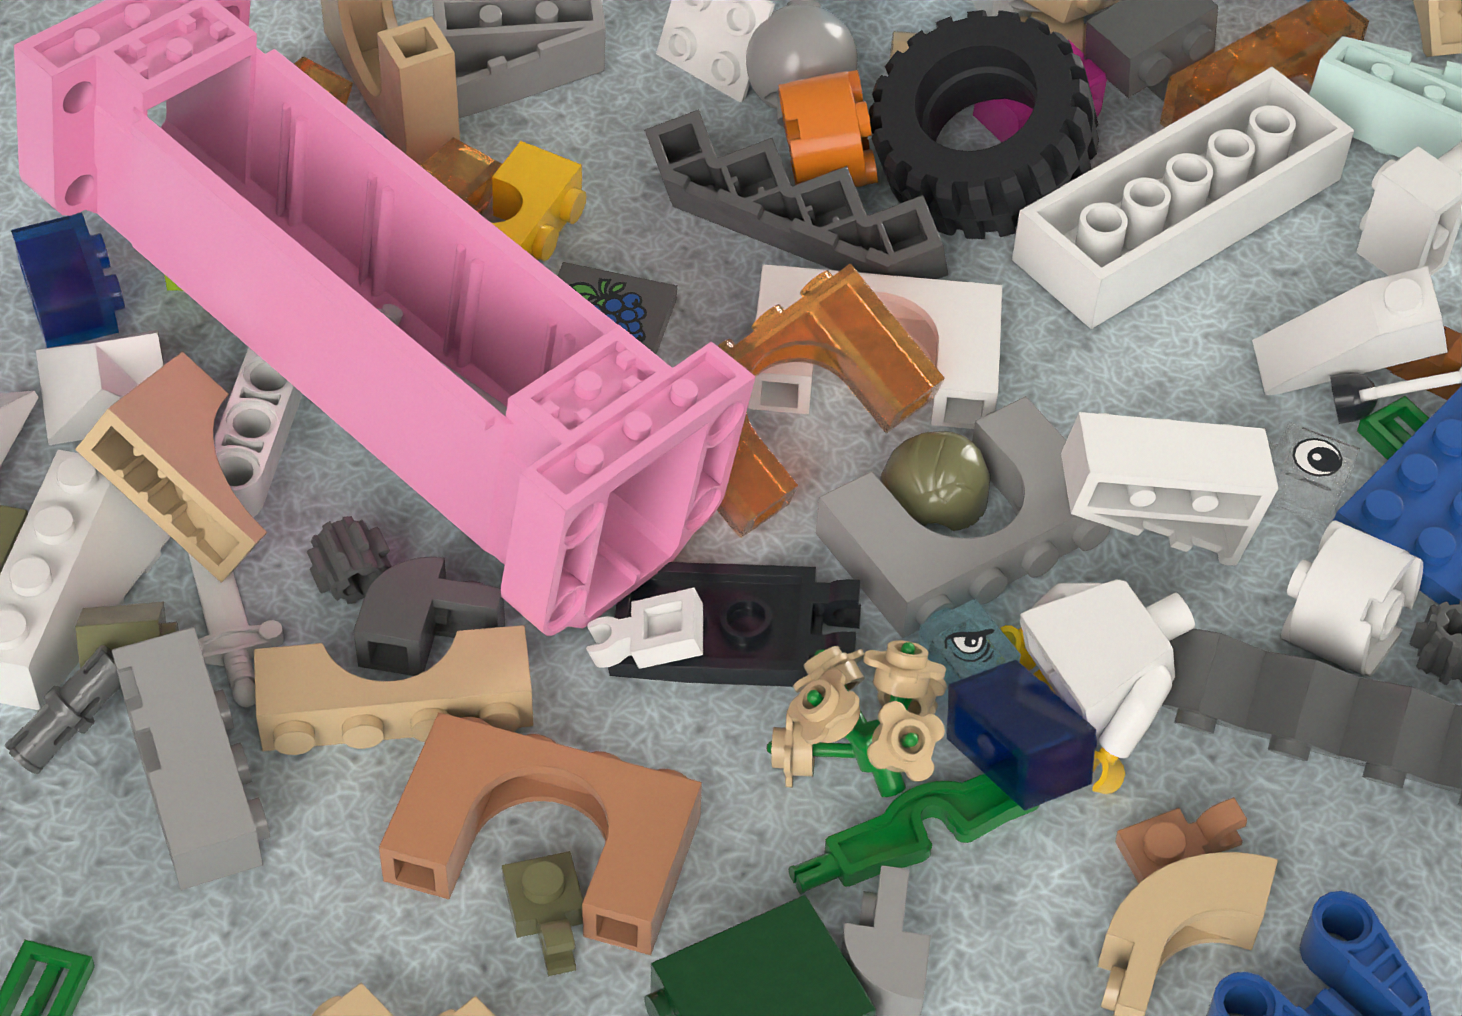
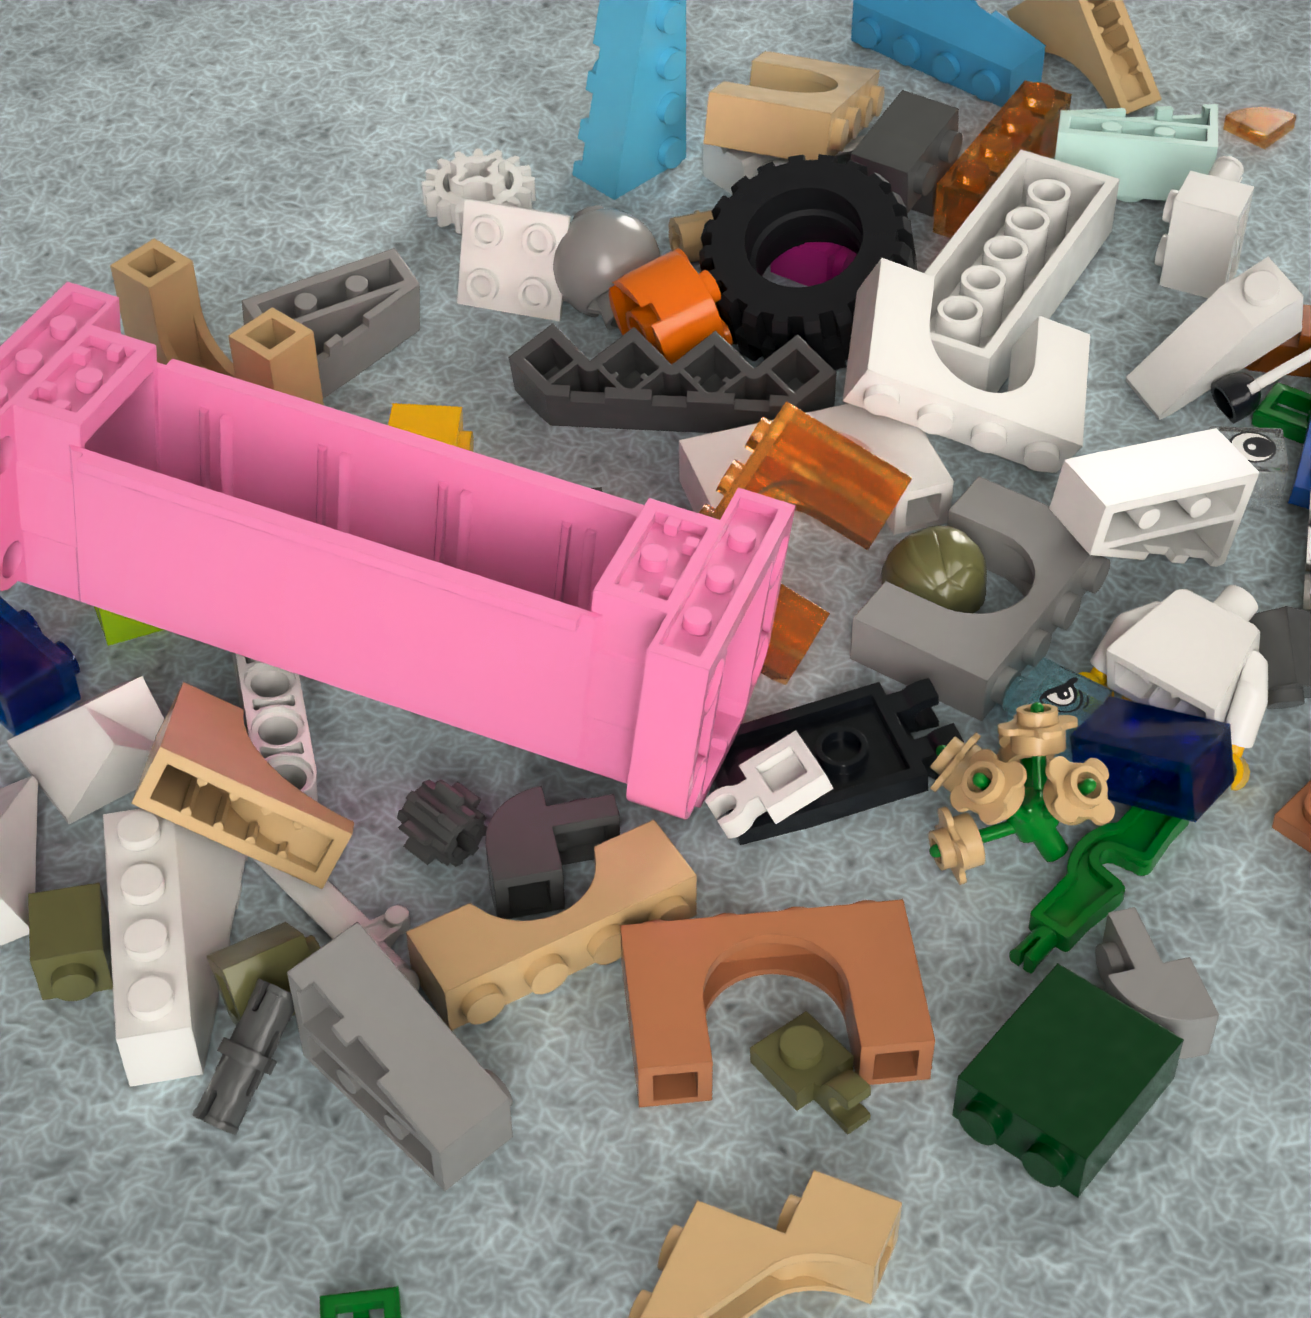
camera: 20 degrees left, 5 degrees down
(994, 275) = (901, 376): none -> white arch

